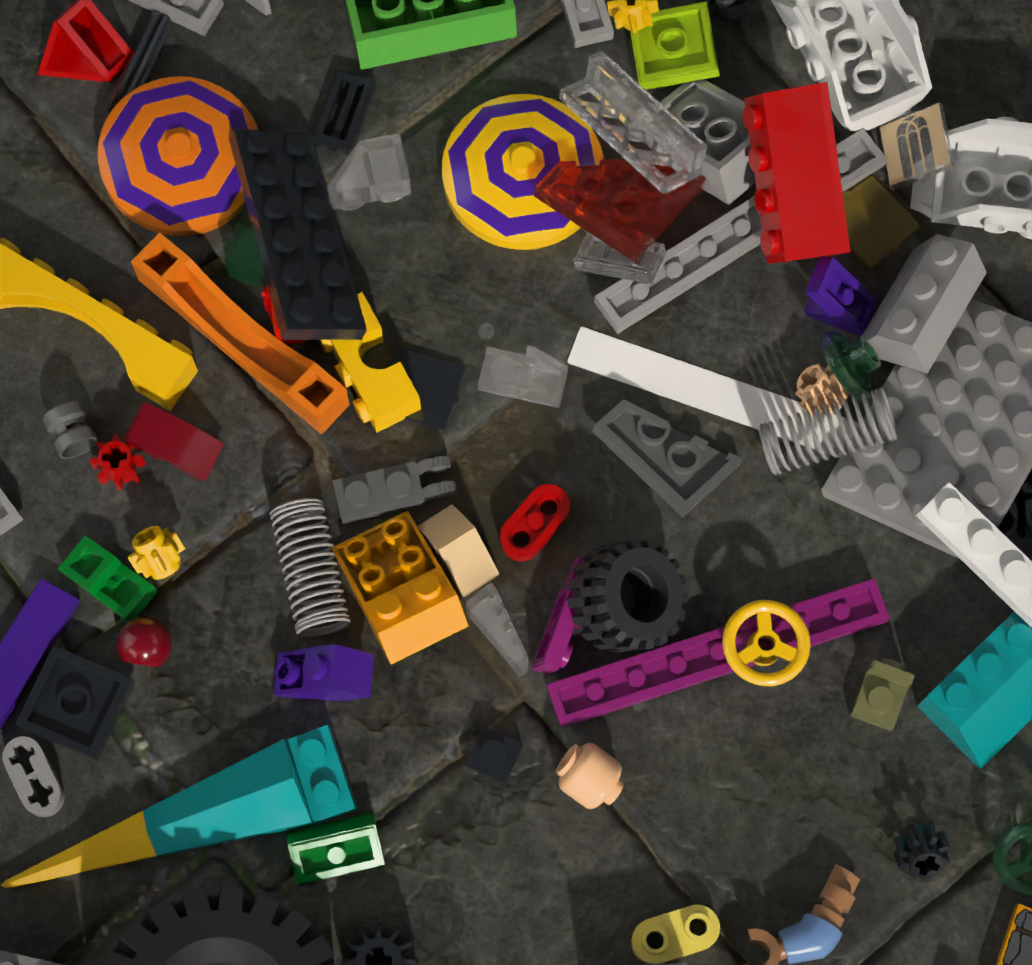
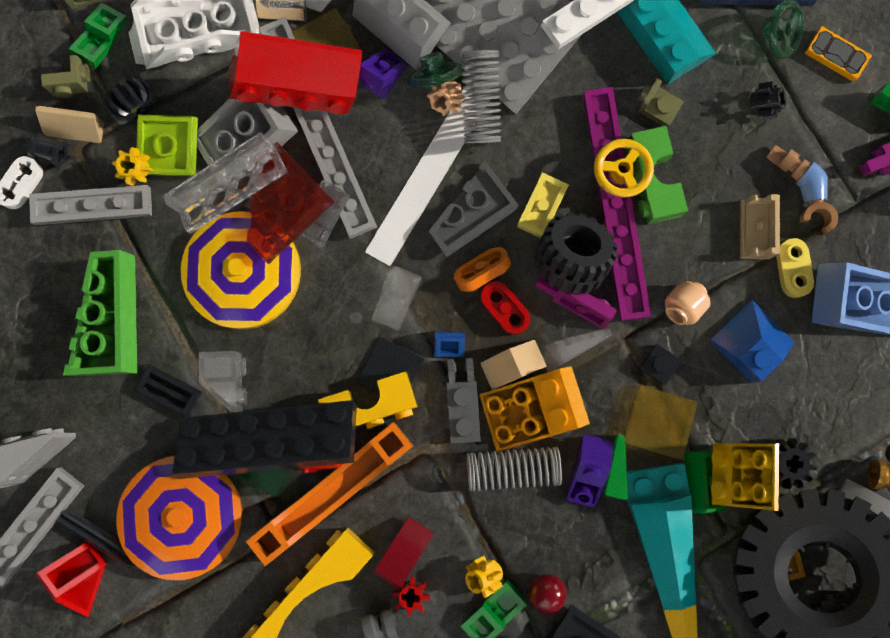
camera: 80 degrees left, 10 degrees up
(316, 710) = (616, 483): none -> green slope
(348, 881) = (745, 475): none -> yellow slope
(410, 768) = (660, 422): none -> clear yellow tile
(472, 457) = (449, 343): none -> blue slope
(552, 886) = (752, 342): none -> blue slope
(583, 481) = (482, 269): none -> orange plate
(697, 549) = (542, 205): none -> light yellow plate
(725, 868) = (760, 227): none -> tan hinge
(733, 711) = (659, 200): none -> bright green arch

